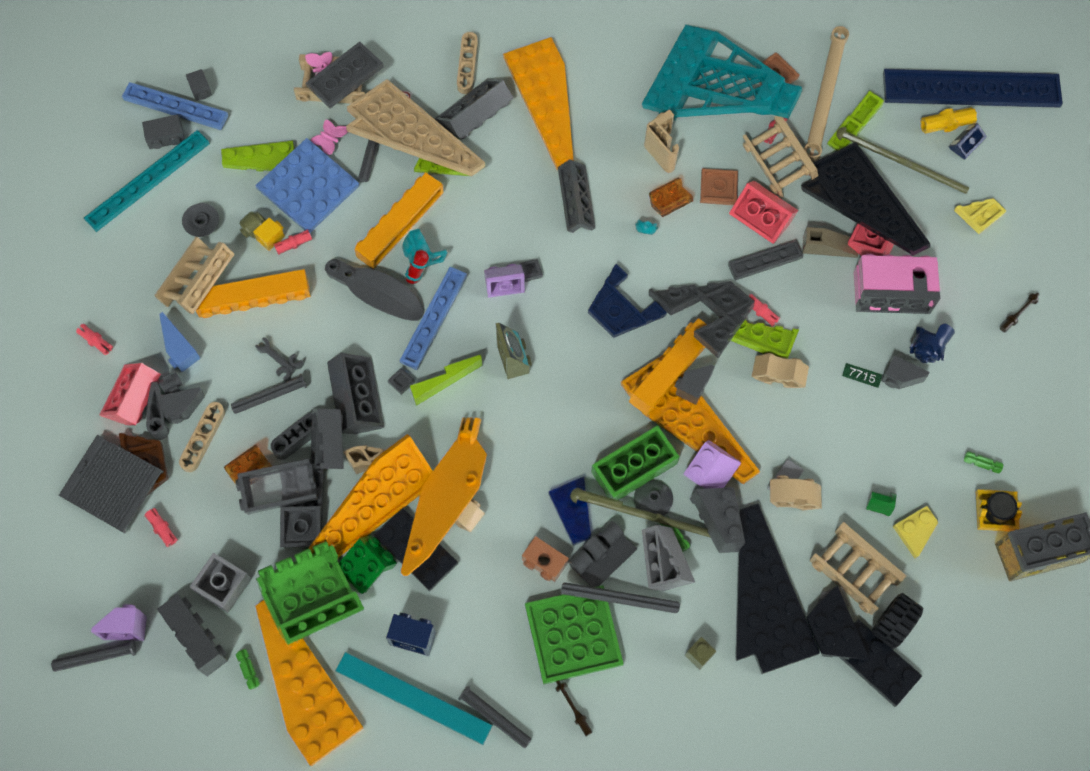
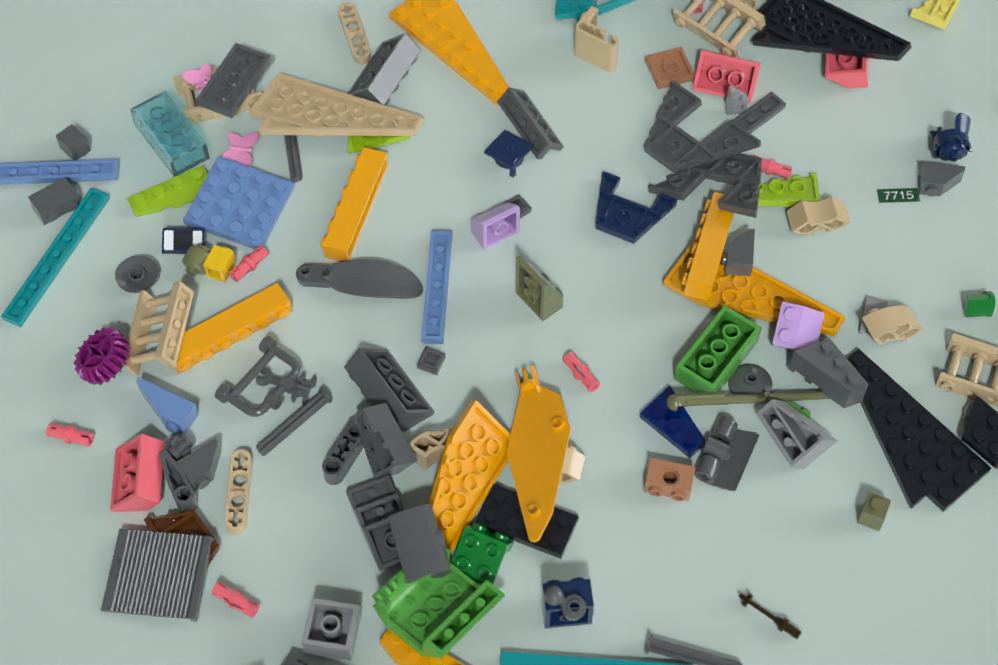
camera: 20 degrees left, 10 degrees down
(142, 283) = (102, 356): none -> magenta gear
(246, 201) = (180, 239): none -> slope
(248, 461) = (306, 503): clear orange bracket -> none
(259, 369) = (272, 400): none -> dark grey bar
(276, 104) = (170, 133): none -> clear light blue brick
(276, 486) = (350, 507): door -> none
(313, 541) = (419, 543): none -> dark grey panel
(396, 630) = (554, 595): none -> dark grey plate
(419, 255) = (394, 229): teal piece -> none
(453, 372) = (484, 331): lime slope -> none
(516, 437) = (573, 362): none -> coral pin
(546, 216) = (509, 151): none -> dark blue hat
(572, 636) = (735, 543): bright green plate -> none
(620, 597) = (766, 487): dark grey axle -> none
(646, 227) = (616, 128): teal plate -> none
(670, 197) = (627, 92): clear orange bracket -> none
(689, 266) = (680, 150): none -> dark grey wing
(759, 239) = (736, 101): none -> light grey tile
(826, 242) = (803, 83): dark tan slope -> none
(896, 284) = (892, 97): bright pink piece -> none

